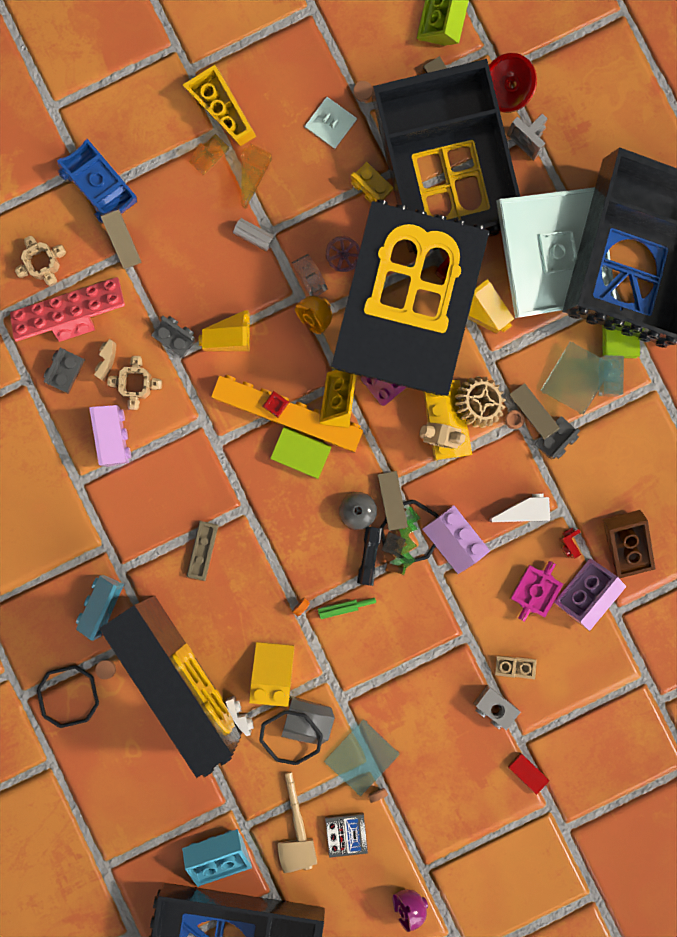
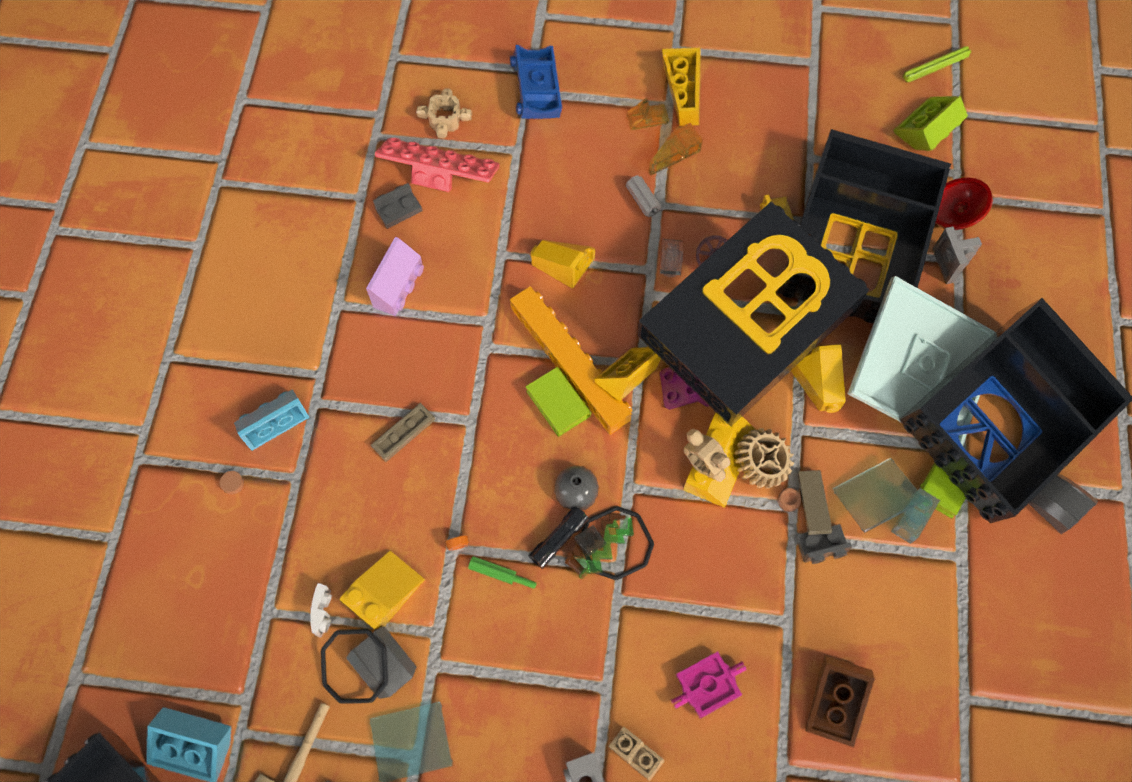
camera: 30 degrees right, 20 degrees down
(42, 704) = (153, 468): black piece -> none
(108, 352) = (446, 214): tan slope -> none
(120, 383) = (446, 238): tan piece -> none
(121, 238) = (525, 131): dark tan tile -> none
(173, 336) = (514, 235): dark grey bracket -> none
(174, 685) = (279, 516): black panel -> none
(275, 404) = (564, 339): red tile -> none
(315, 312) = (653, 285): light orange cylinder -> none
(330, 122) = (772, 152): light aqua piece -> none
(363, 91) = (817, 142): nougat tile -> none
(392, 501) = (616, 500): dark tan tile -> none
(456, 539) = (656, 576): lavender slope -> none
(529, 509) = (749, 594): white slope -> none
(569, 546) = (771, 660): red bracket -> none
(590, 594) = (765, 726): lavender slope -> none

